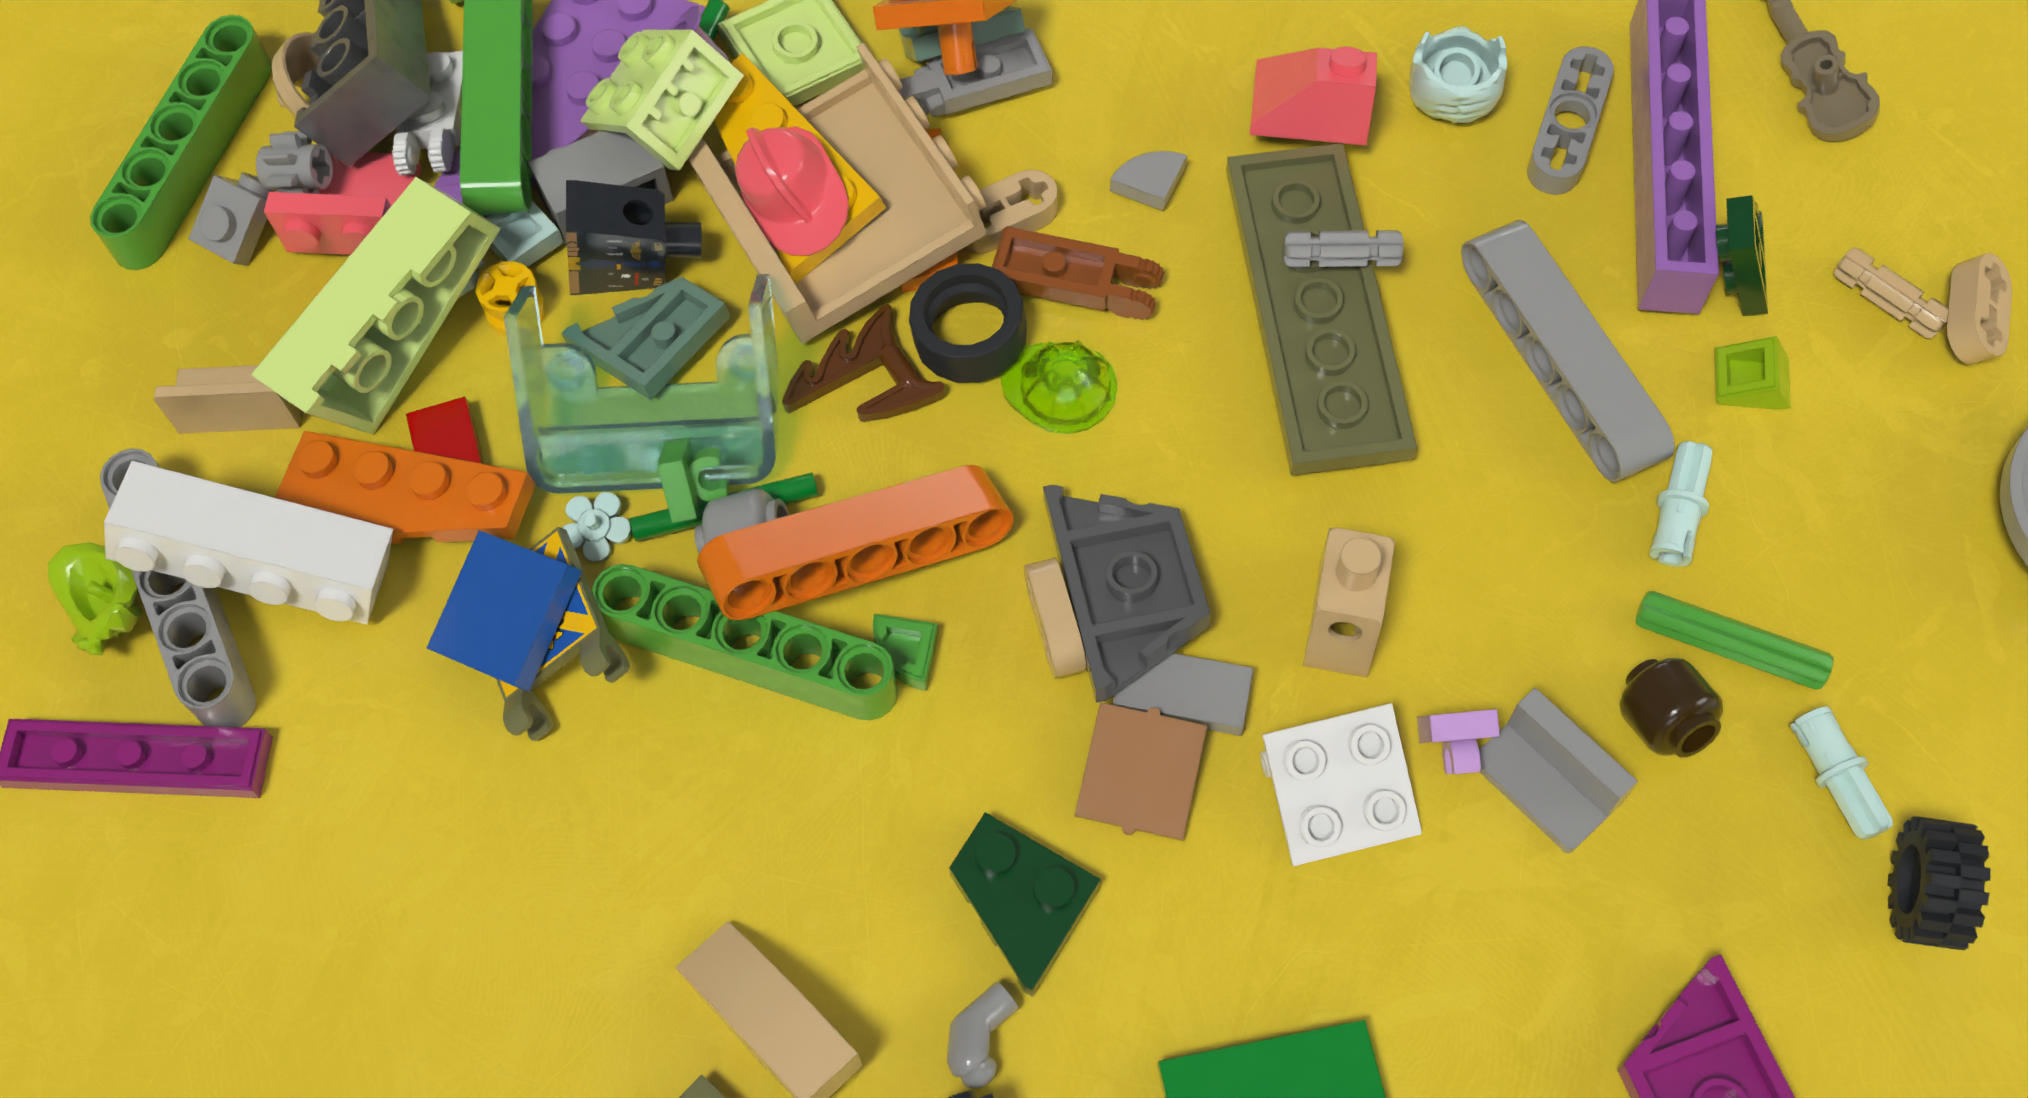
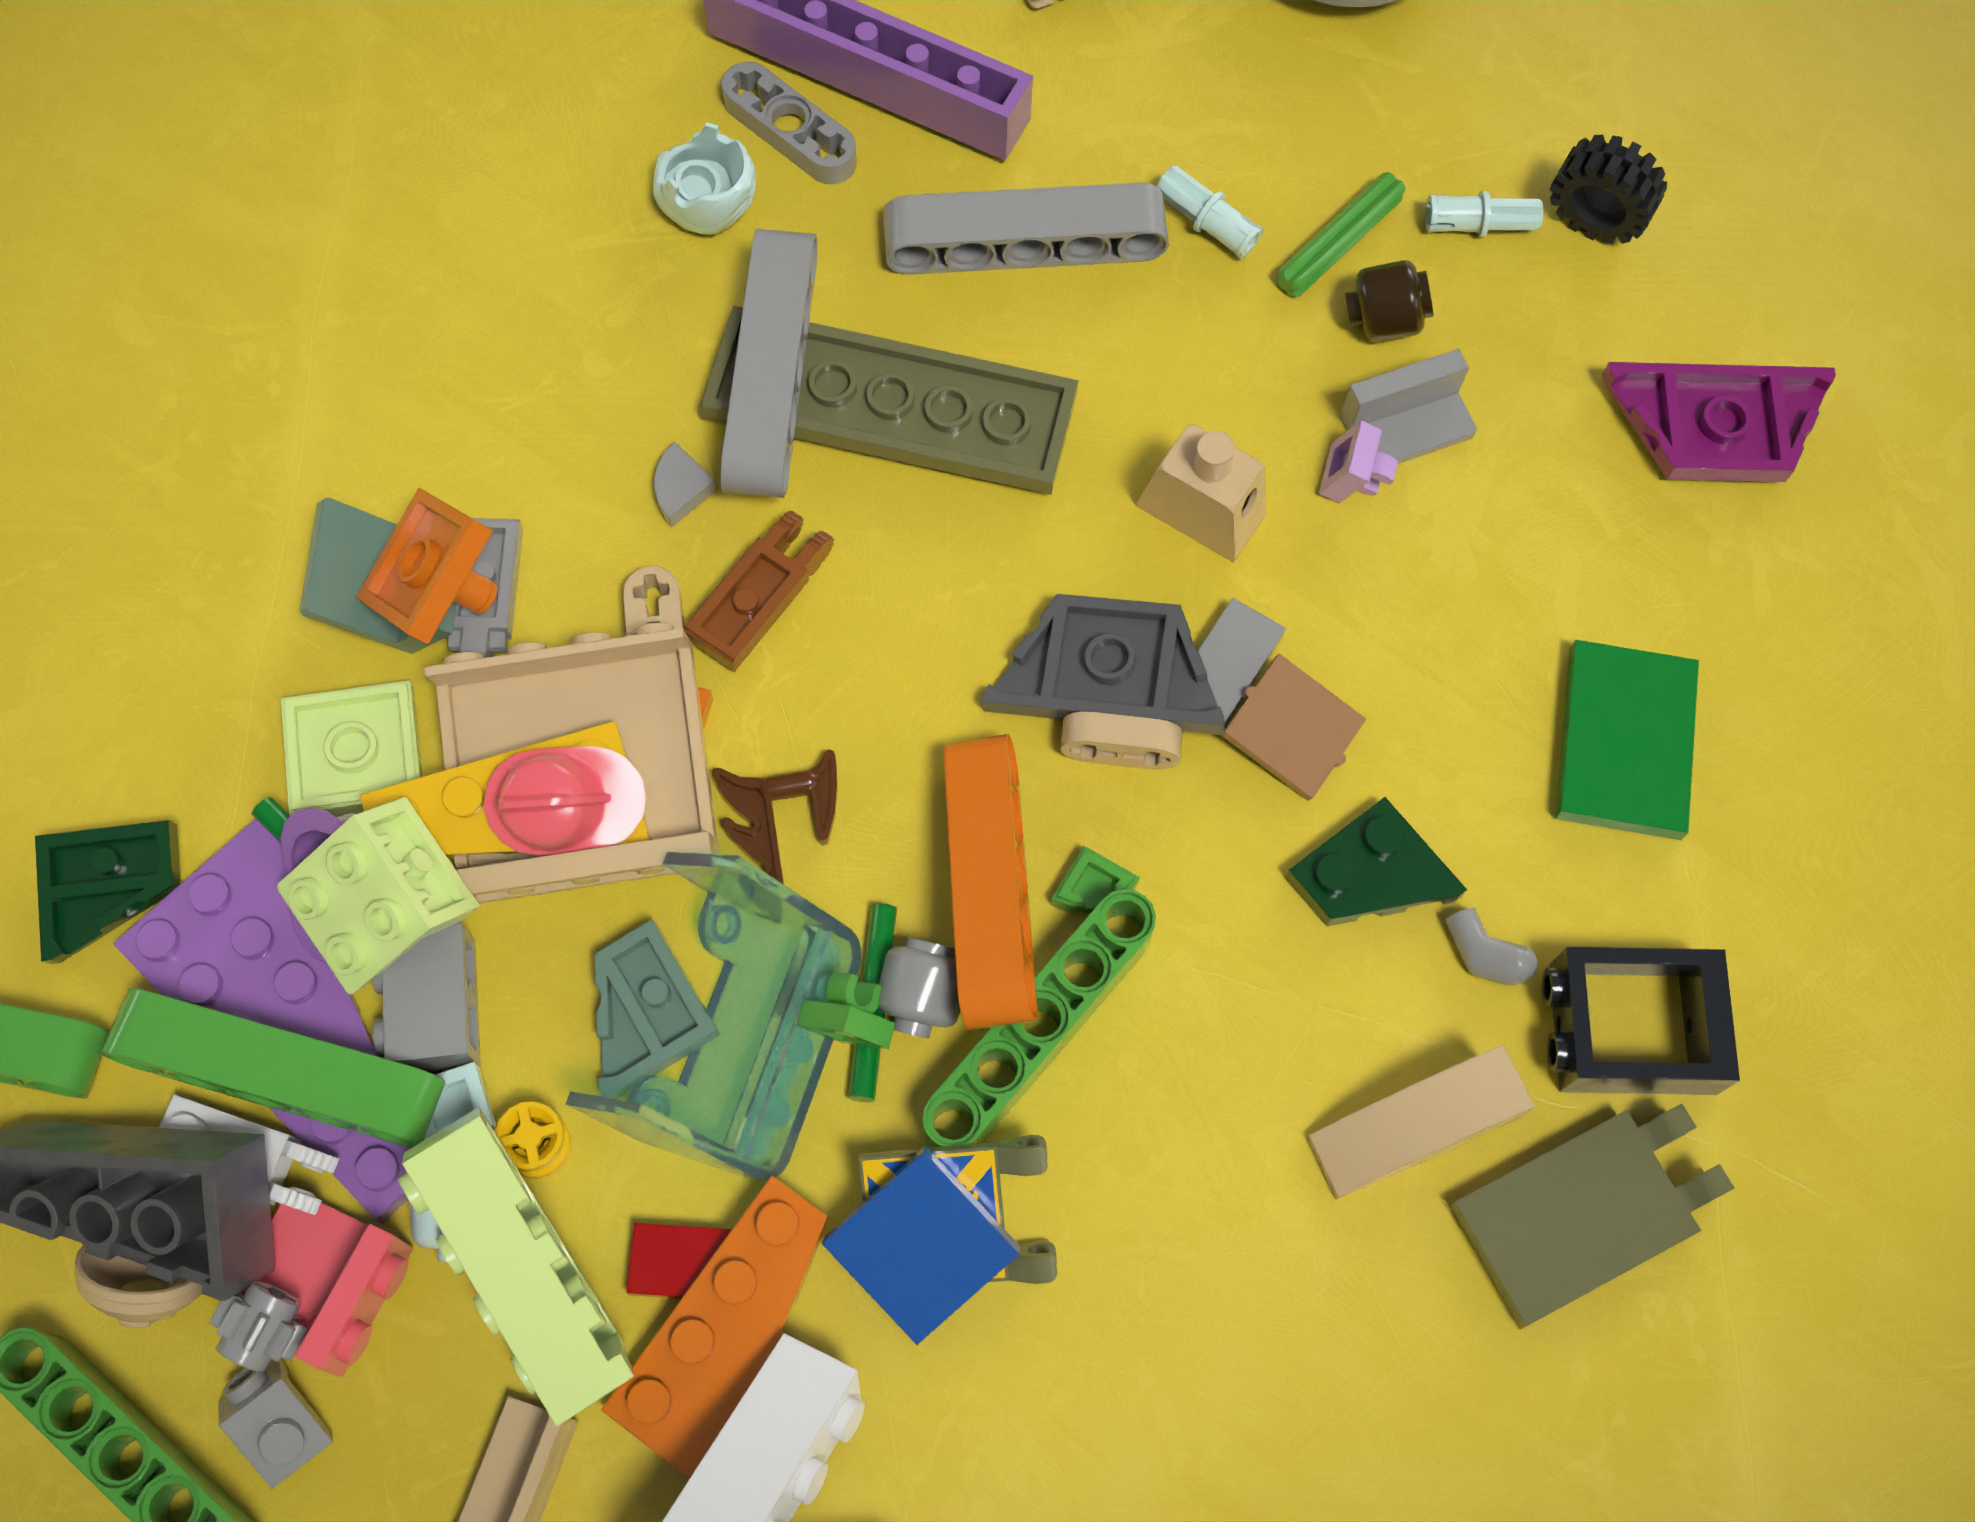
camera: 75 degrees left, 5 degrees up
(596, 525) = (839, 1135): light aqua plant -> none
(622, 238) = (525, 997): black torso -> none
(960, 285) = (757, 659): black tyre -> none
(1060, 386) = (868, 652): clear neon green piece -> none
(1289, 183) = (769, 364): none -> light grey beam
(1315, 95) = (672, 304): coral slope -> none
(1341, 784) = (1364, 573): white hinge -> none
(1343, 248) = (856, 350): light grey axle -> none
(1743, 254) = (1005, 43): dark green wing -> none
(1753, 374) = (1105, 109): lime slope -> none

